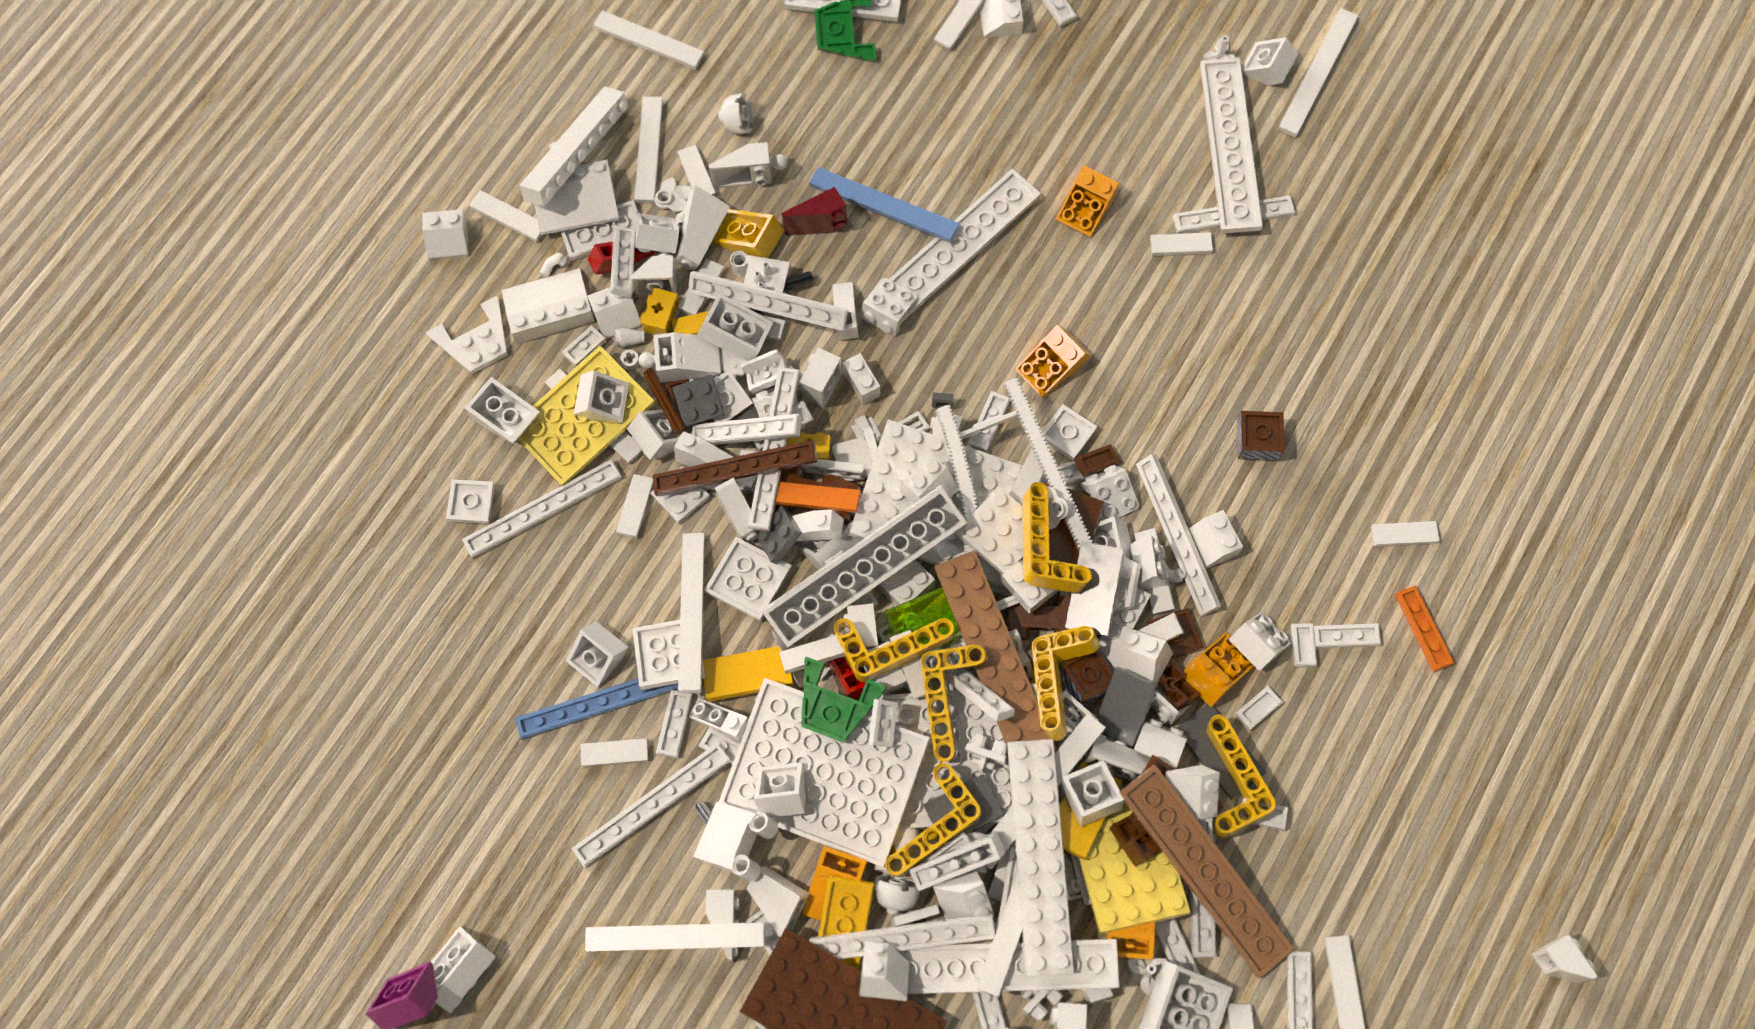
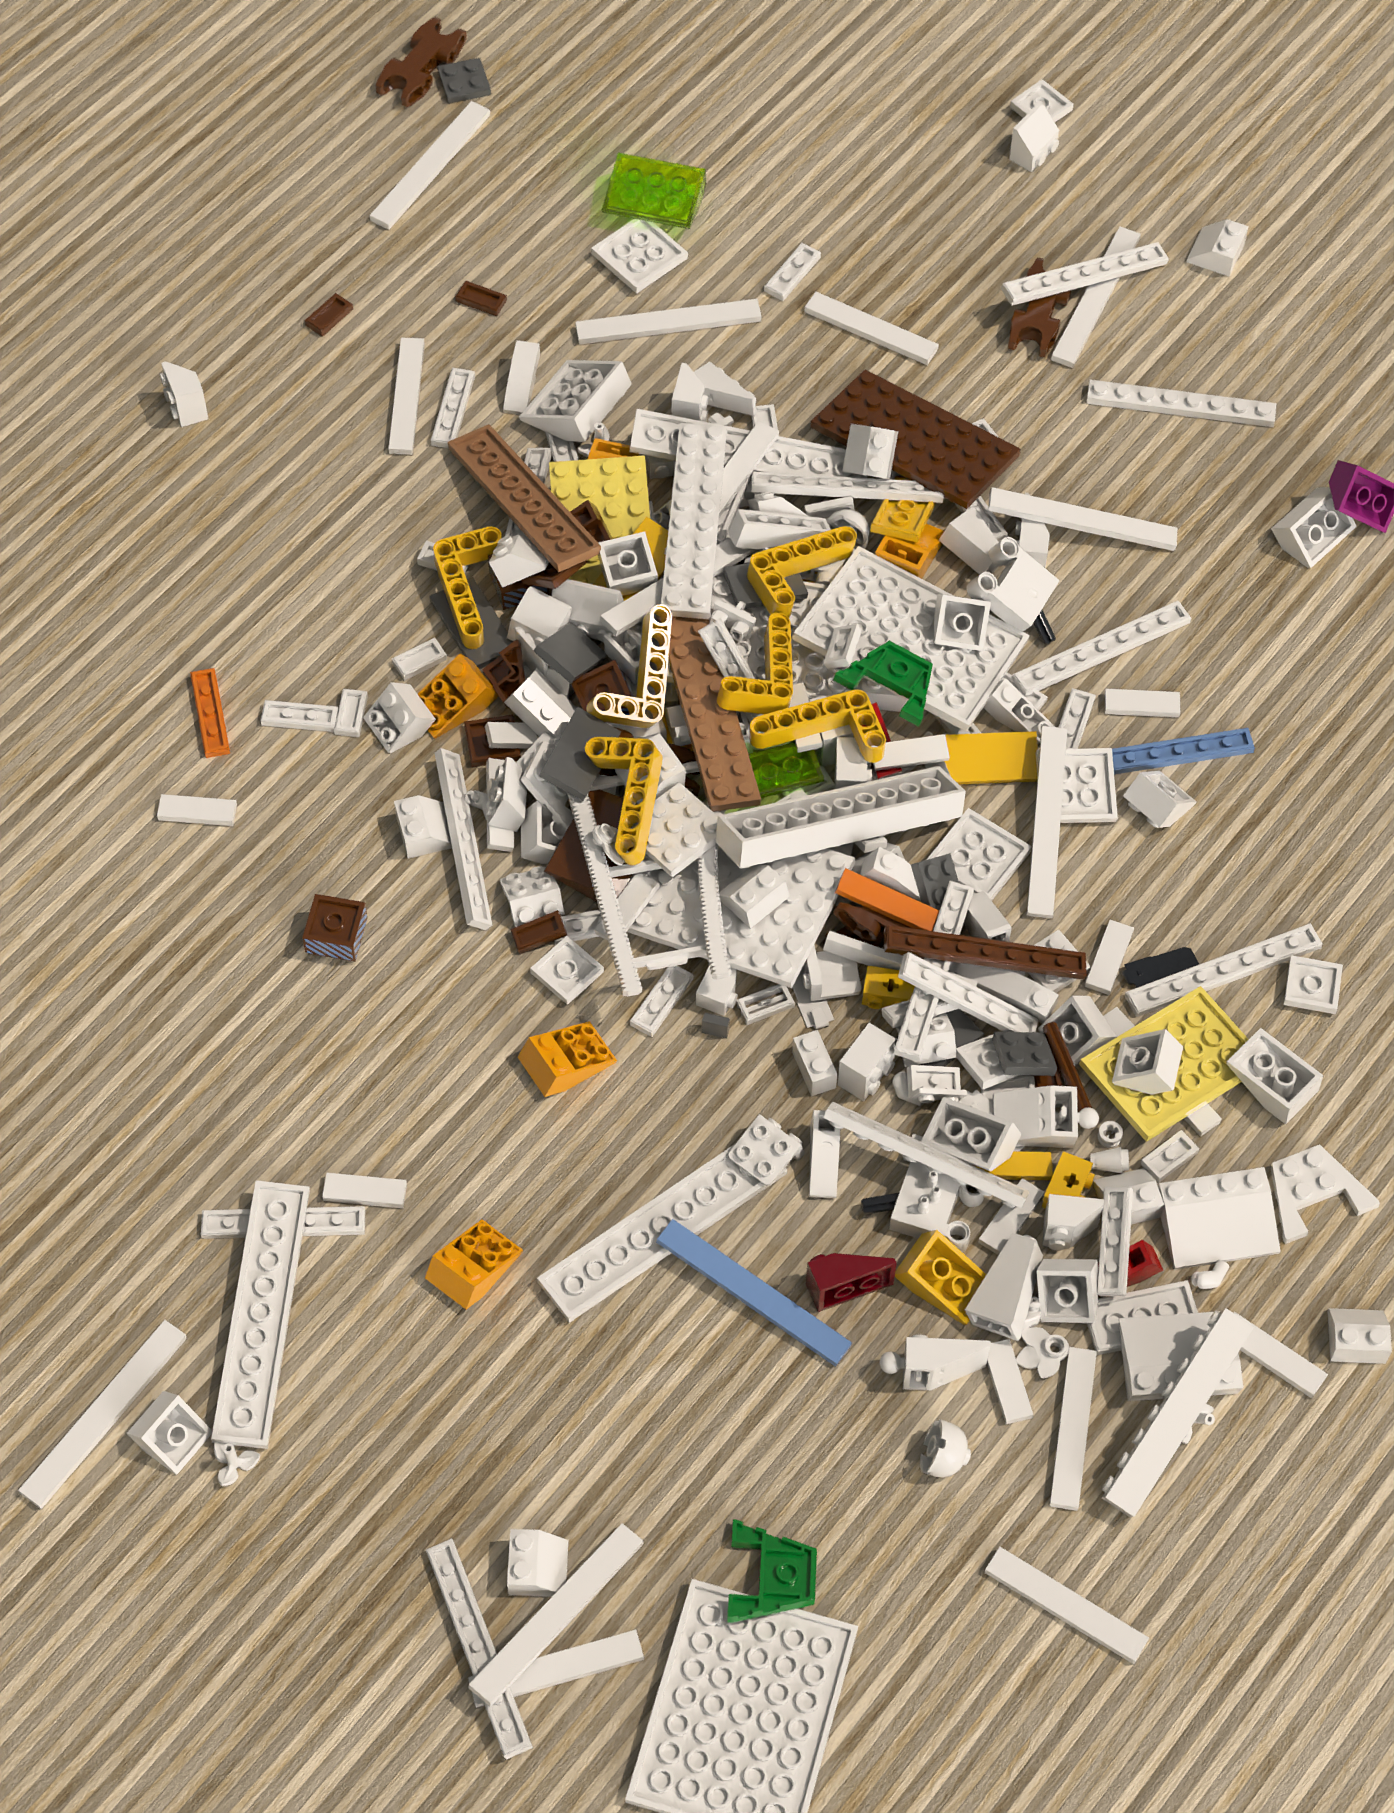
camera: 175 degrees left, 10 degrees down
(595, 503) = (1159, 966): none -> black piece

